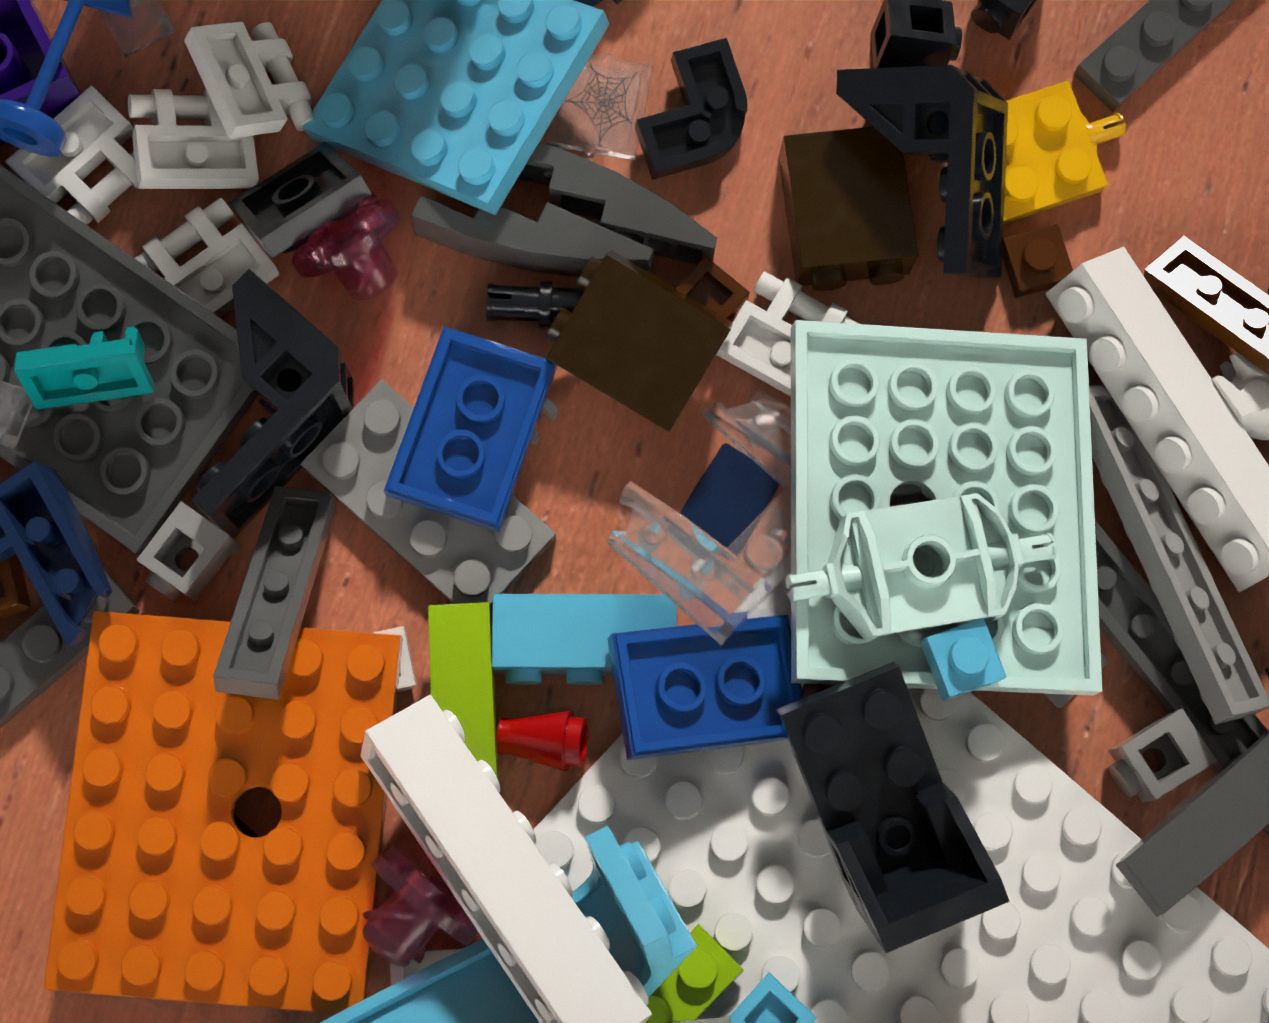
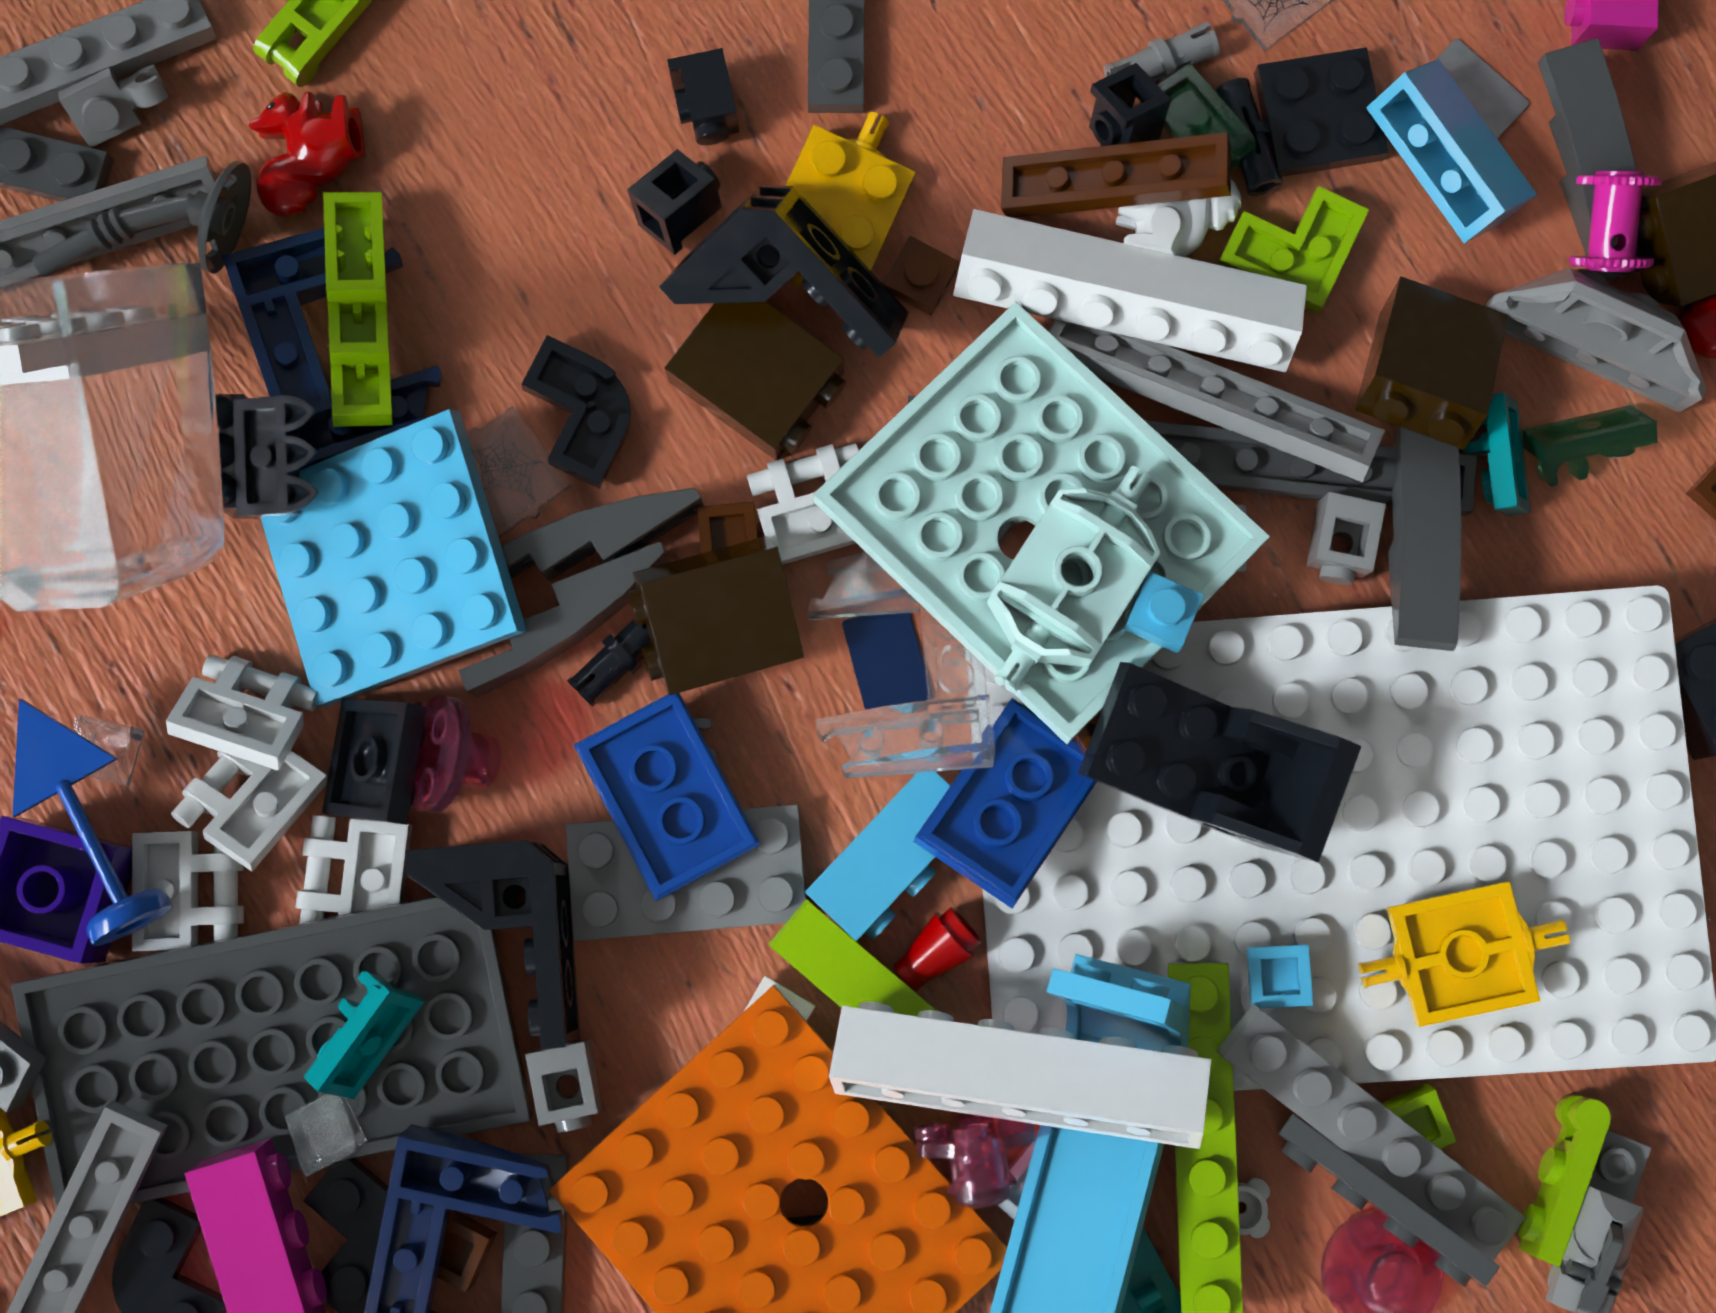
camera: 45 degrees left, 5 degrees up
(275, 594) = (660, 1047): dark grey plate -> none

